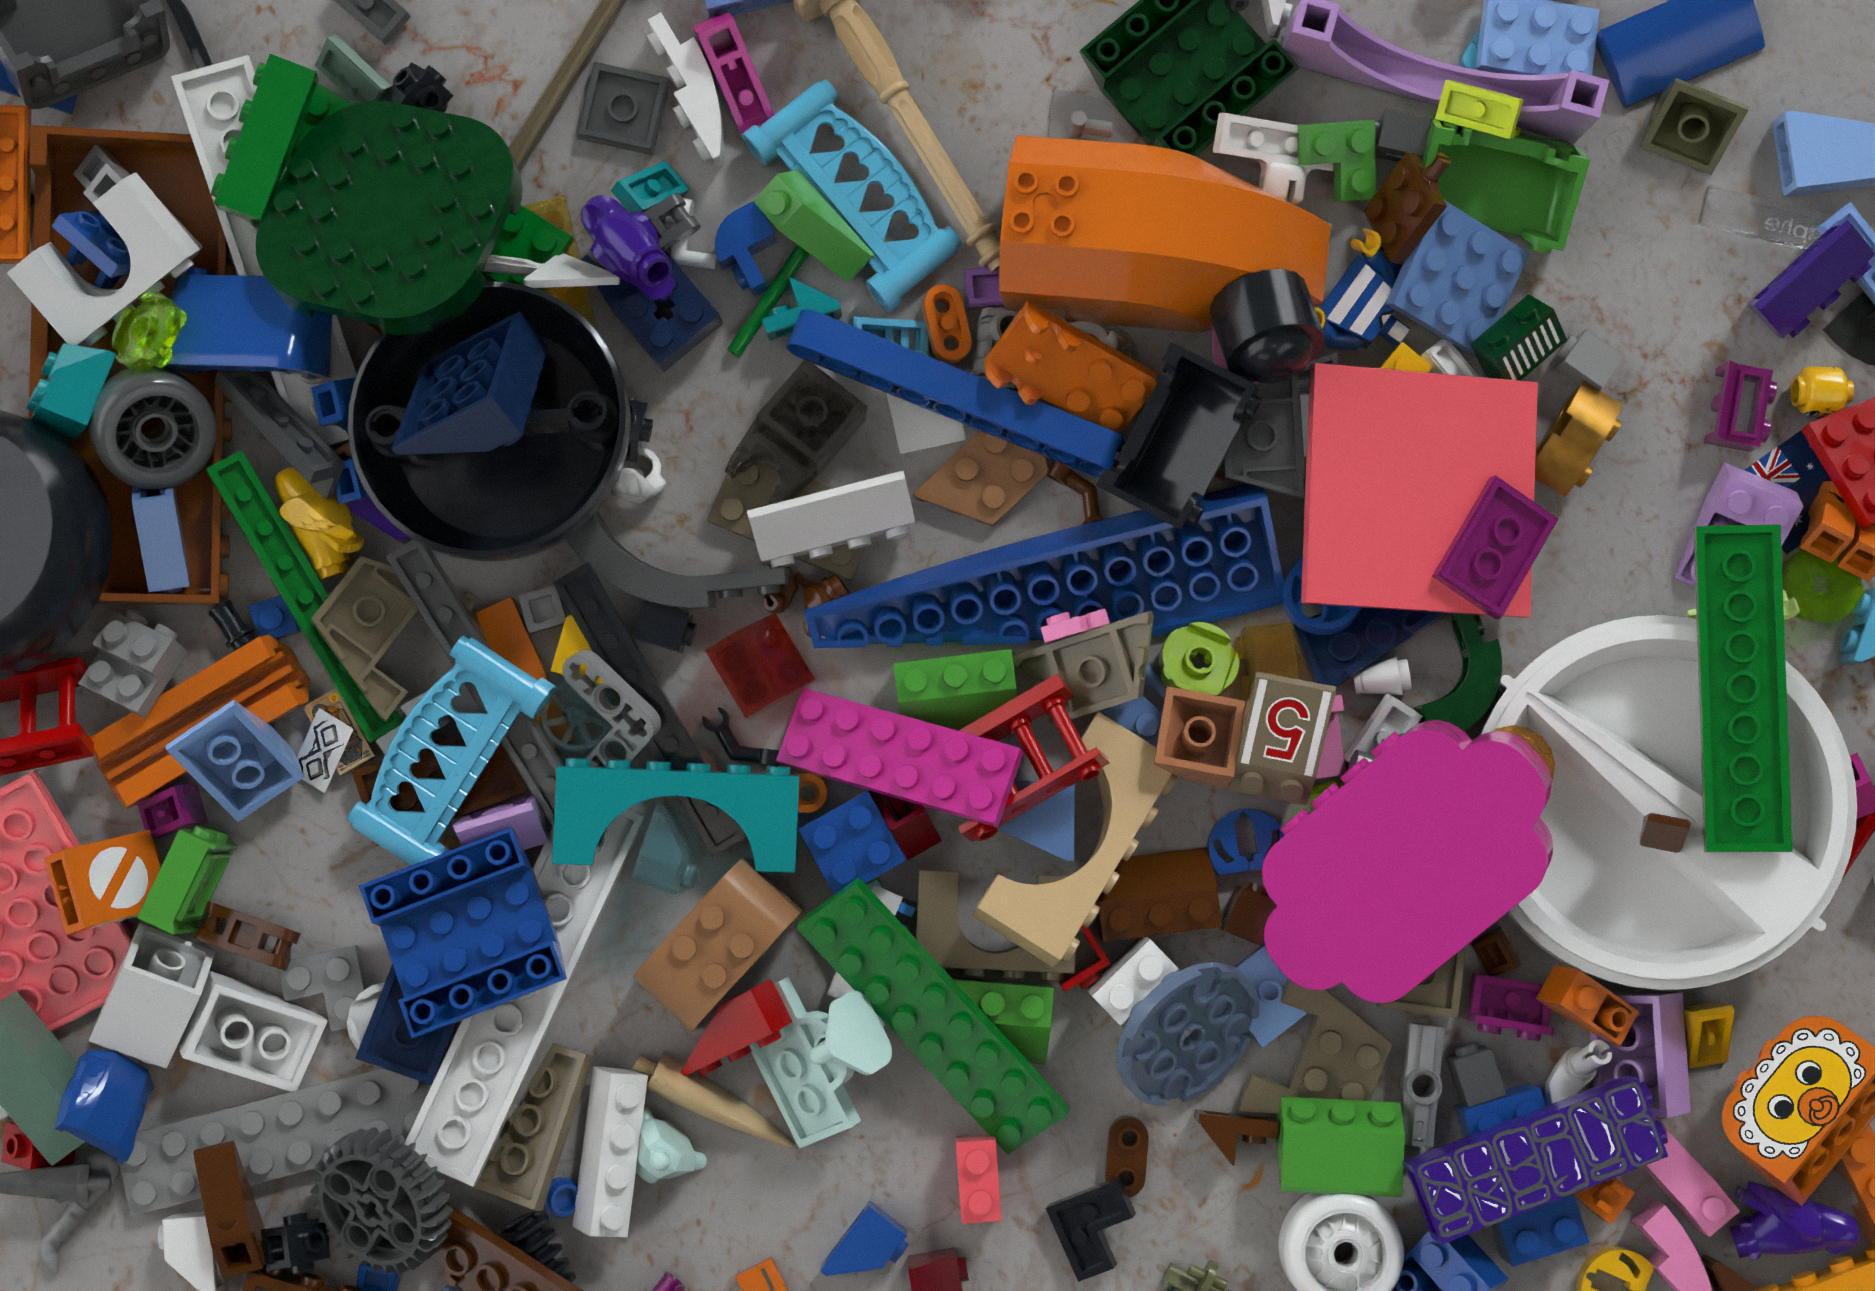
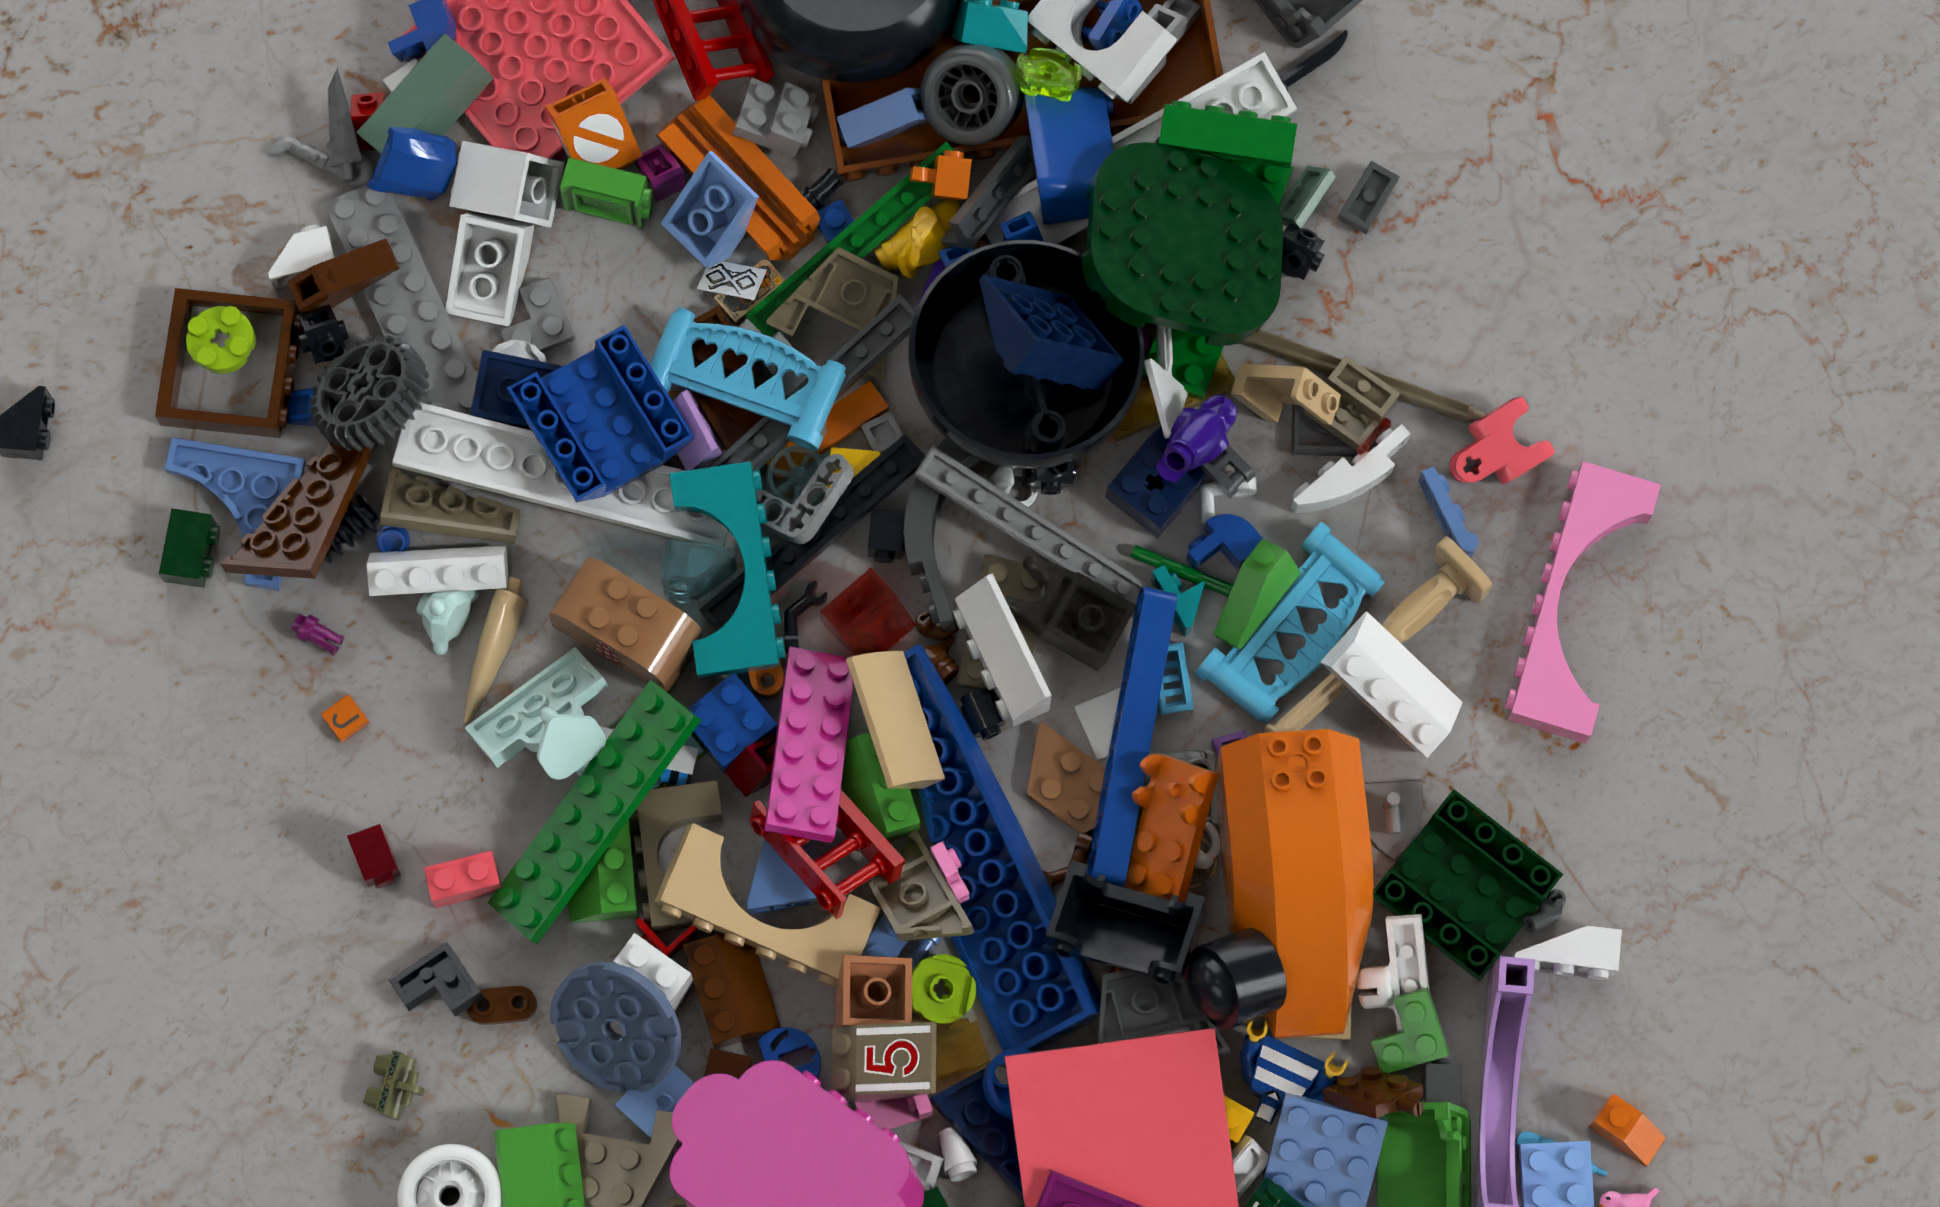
camera: 80 degrees right, 10 degrees down
(246, 935) = (568, 248): reddish brown plate -> none
(251, 473) = (948, 178): none -> orange brick
(575, 164) = (1270, 386): none -> tan panel
(610, 71) = (1361, 405): none -> dark tan slope
(639, 44) = (1384, 425): none -> clear red hinge
(648, 187) = (1258, 453): teal slope -> none
(687, 464) = (1023, 524): none -> light grey tile
(733, 71) = (1375, 504): dark pink slope -> none
(739, 1022) = (561, 650): red slope -> none
(867, 1243) = (394, 797): blue slope -> none
(890, 654) = (895, 720): none -> tan slope
(893, 558) = (981, 714): none -> black brick
(946, 325) = (1193, 724): orange plate -> none
(950, 90) = (1394, 685): none -> white slope
(1225, 1127) = (538, 1082): reddish brown slope -> none
(1479, 109) = (1475, 1145): neon yellow panel -> none

